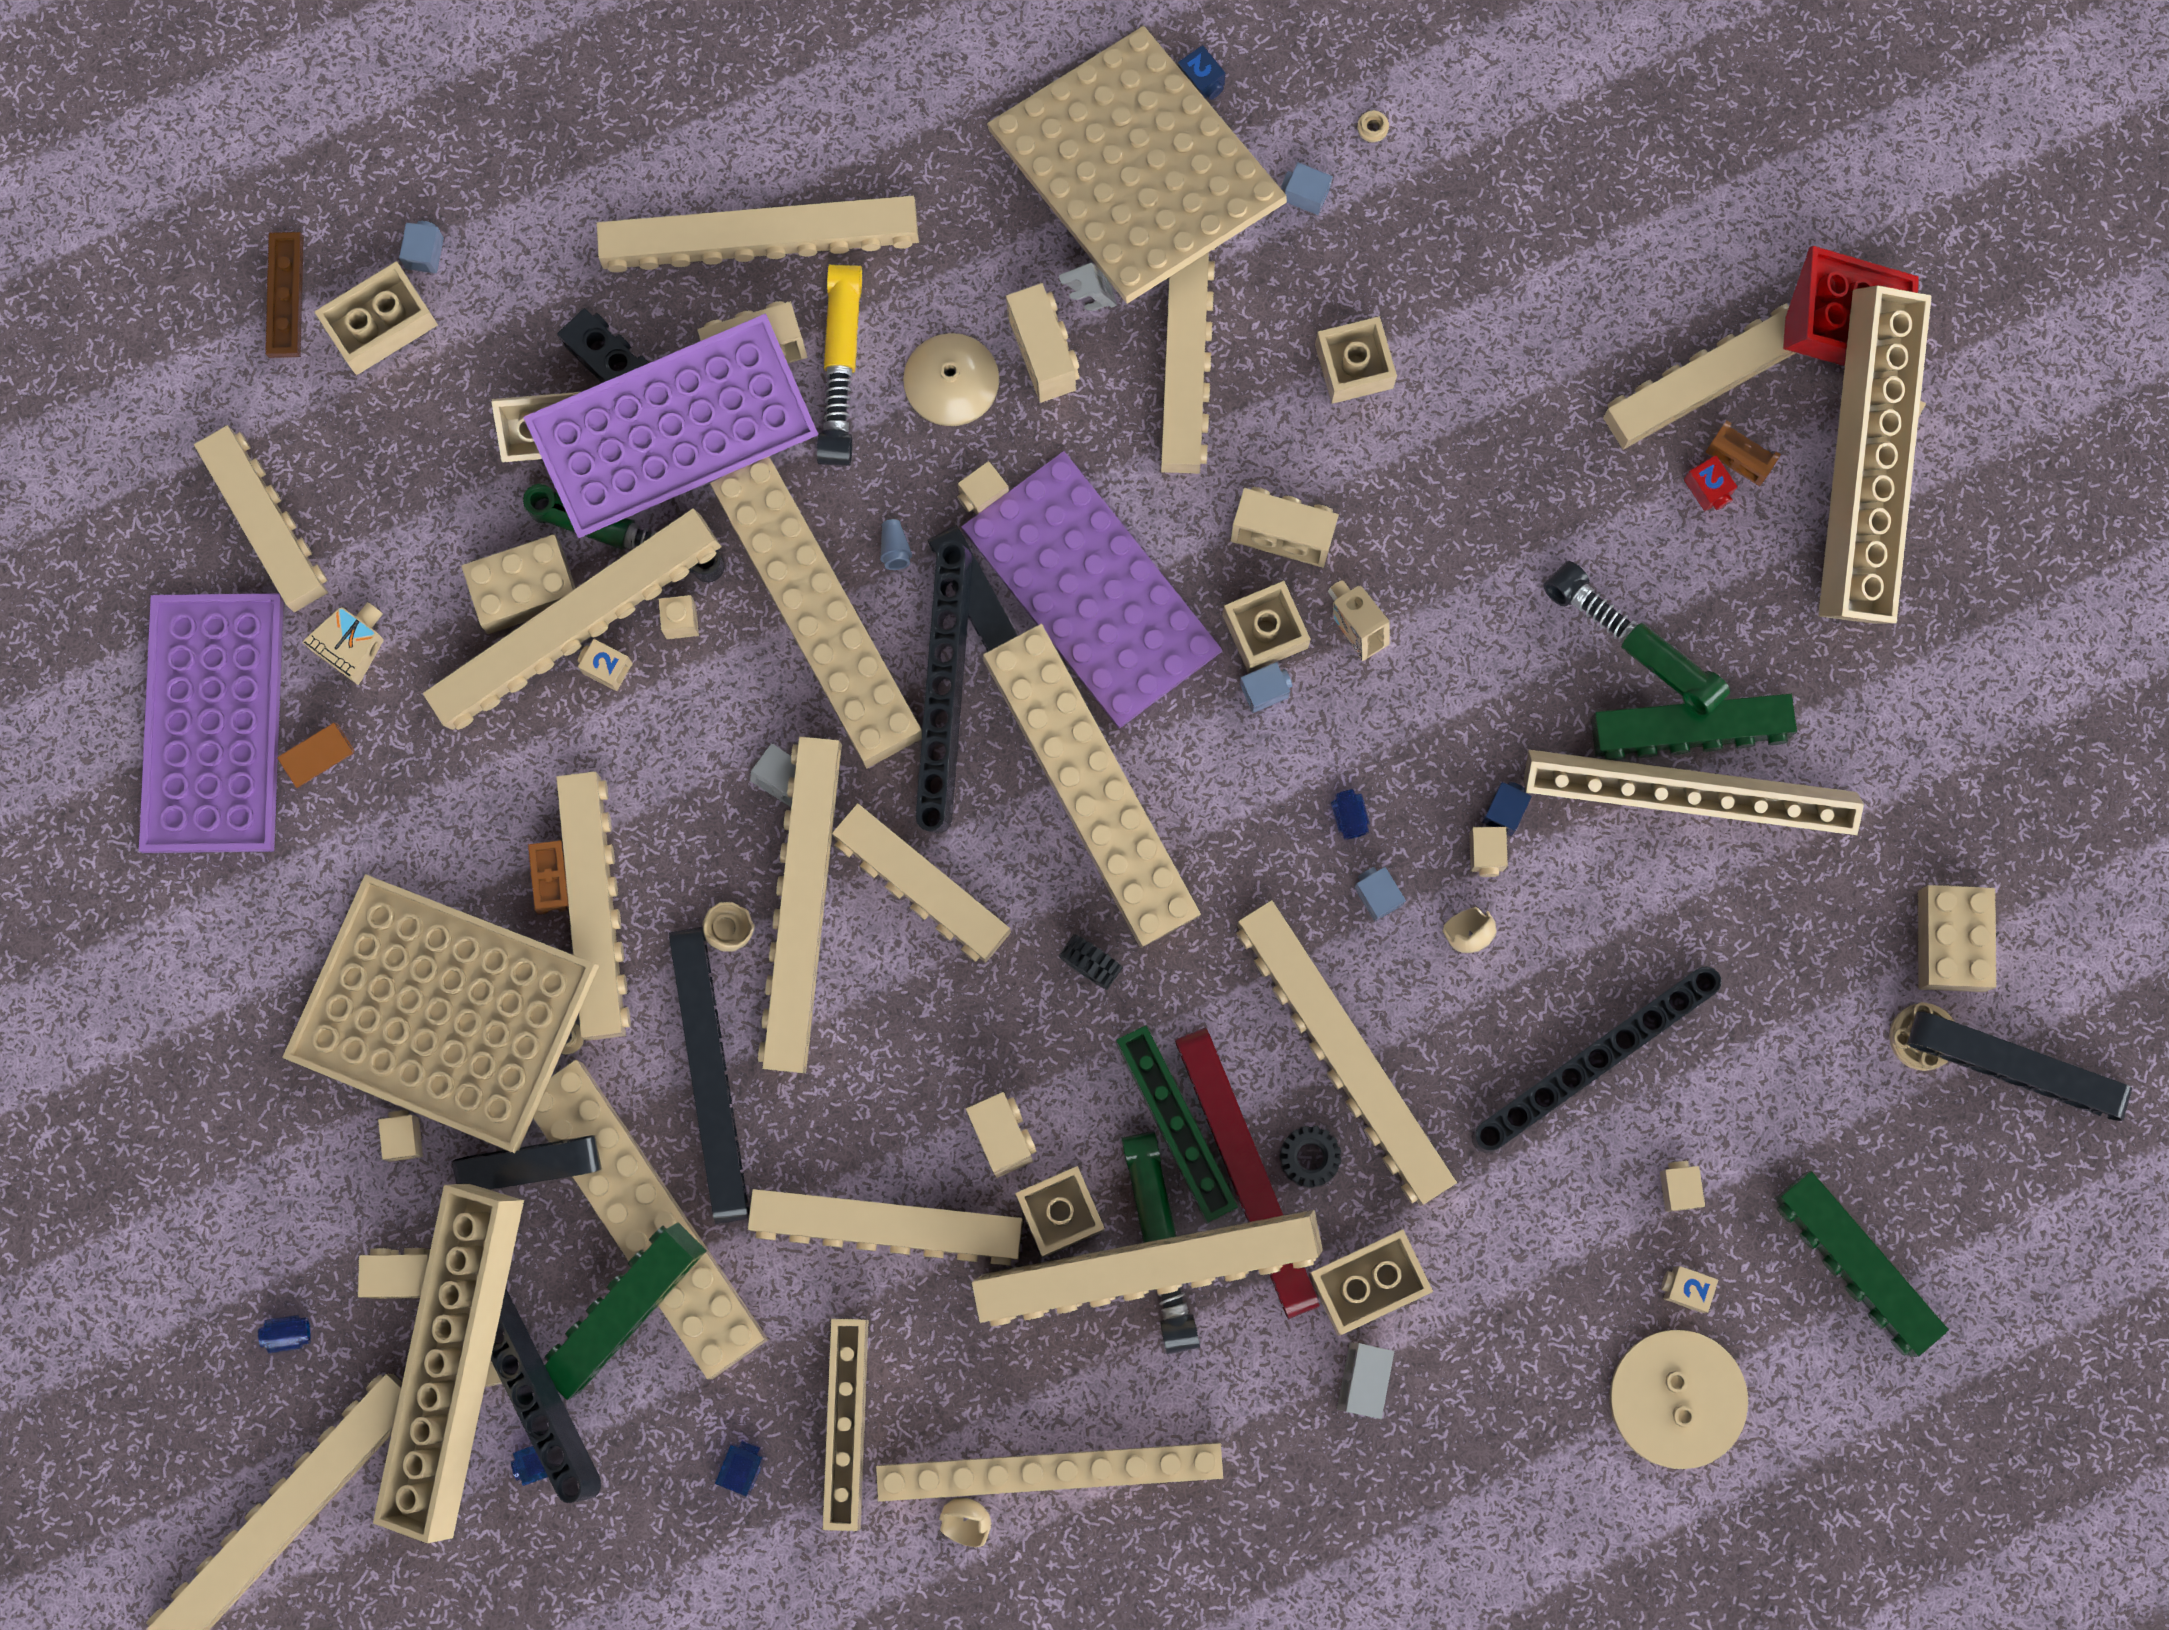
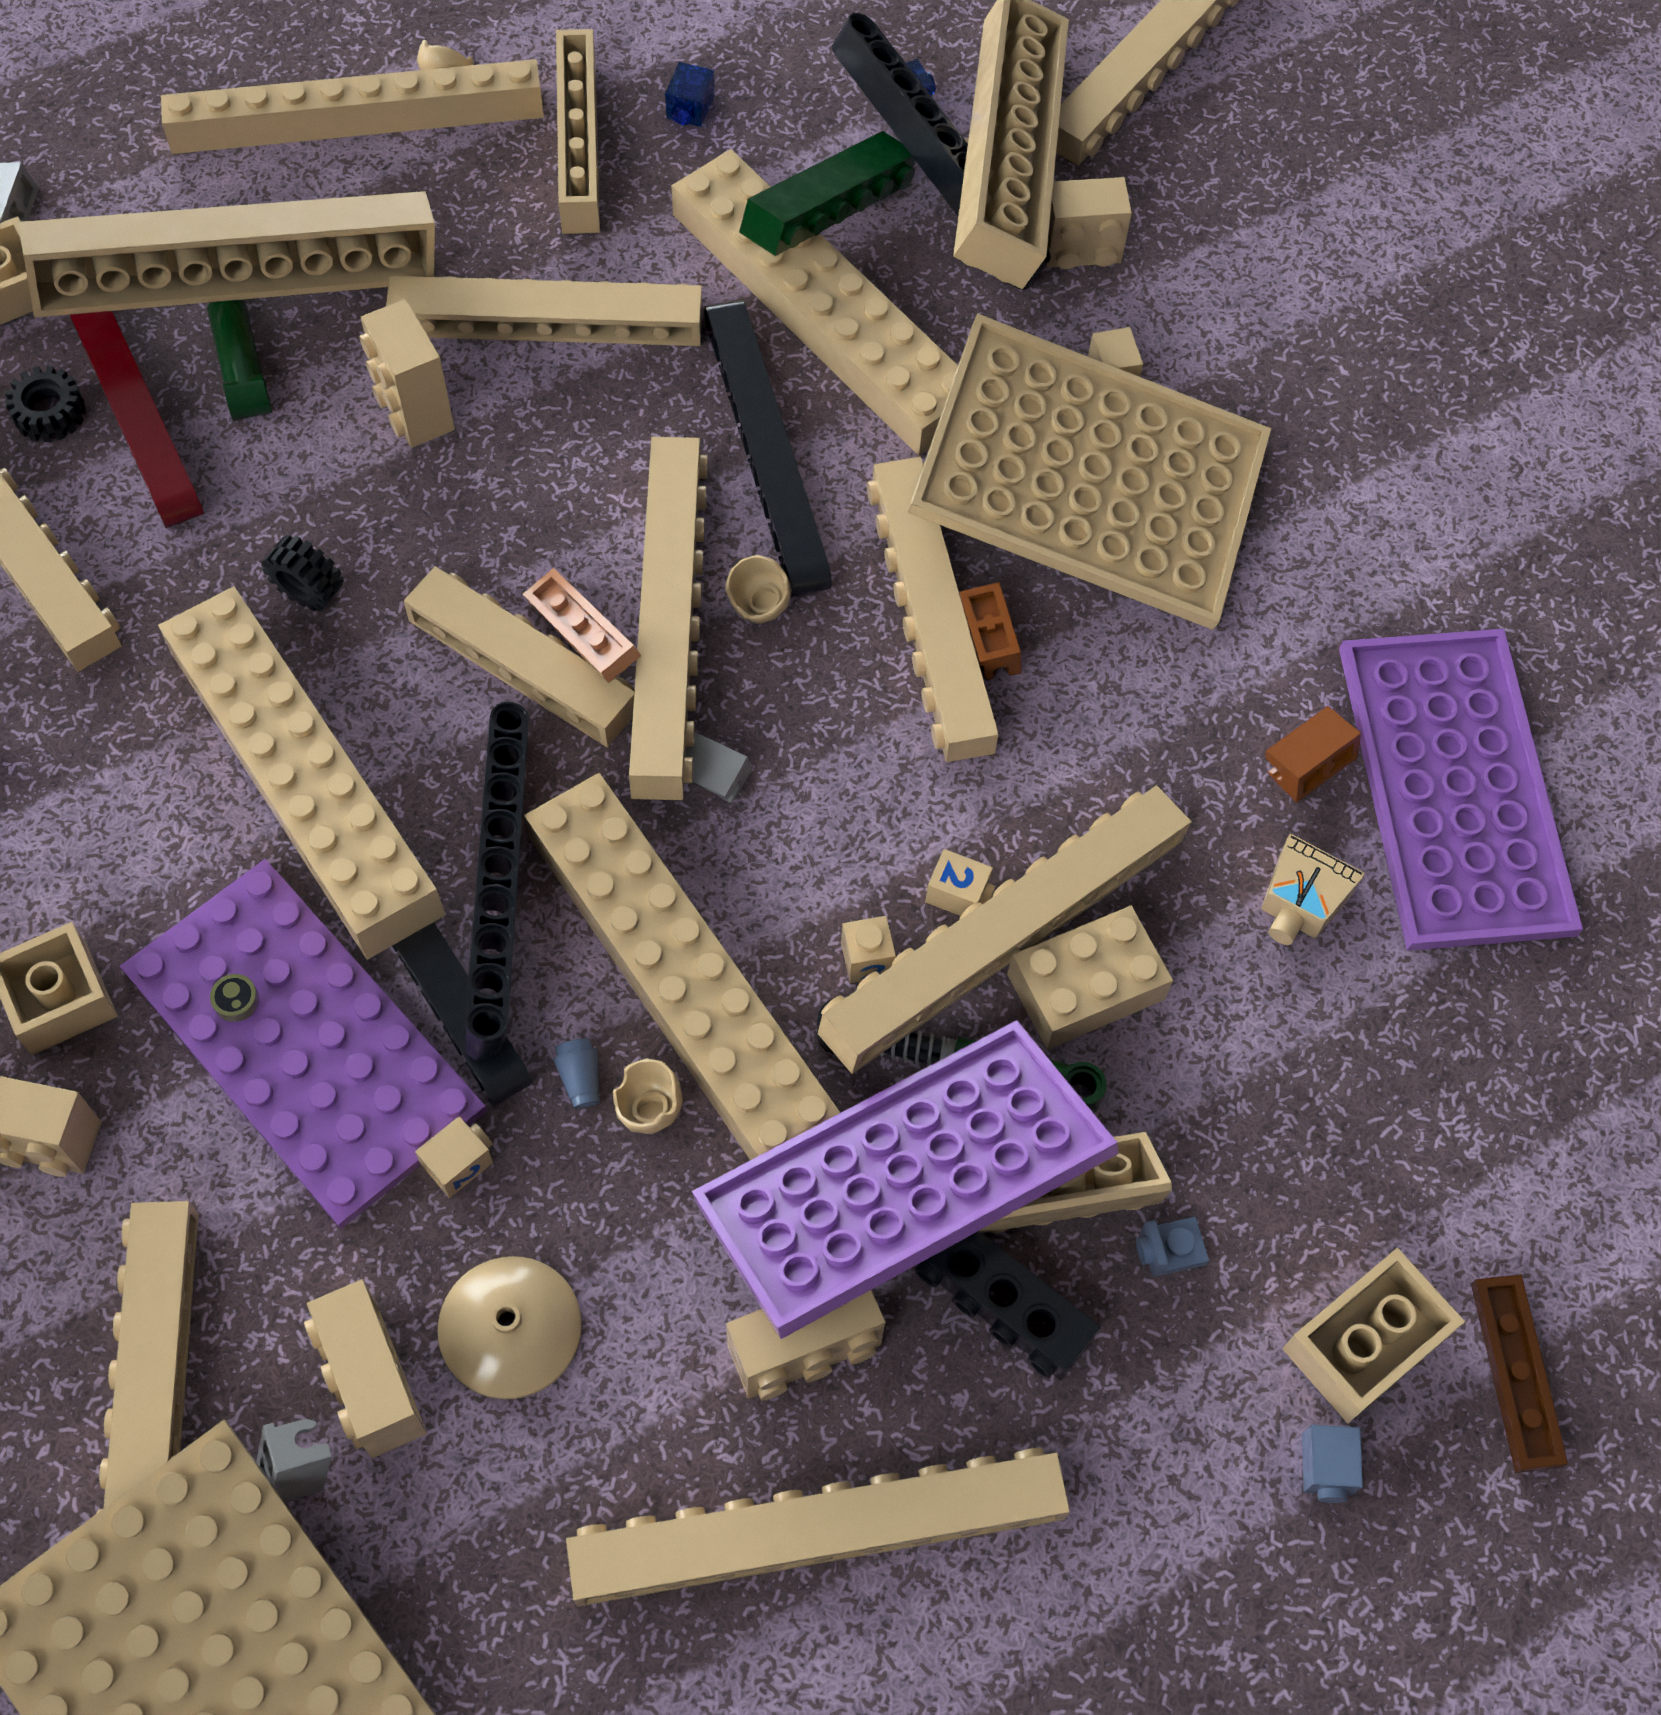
camera: 170 degrees right, 15 degrees down
(261, 518) = (1465, 1044): tan brick -> none
(284, 1334) = (1202, 182): clear blue brick -> none
(496, 389) = (1171, 1246): none -> sand blue bracket
(529, 1164) = (947, 317): black beam -> none
(844, 291) = (675, 1338): piece -> none
(844, 512) = (650, 1083): none -> tan hair
(871, 895) = (581, 625): none -> plate
(1060, 1211) = (331, 323): tan brick -> none
(1135, 609) = (234, 997): none -> olive tile
(1176, 1124) = (203, 417): dark green brick -> none
(1266, 687) = (58, 908): sand blue brick -> none

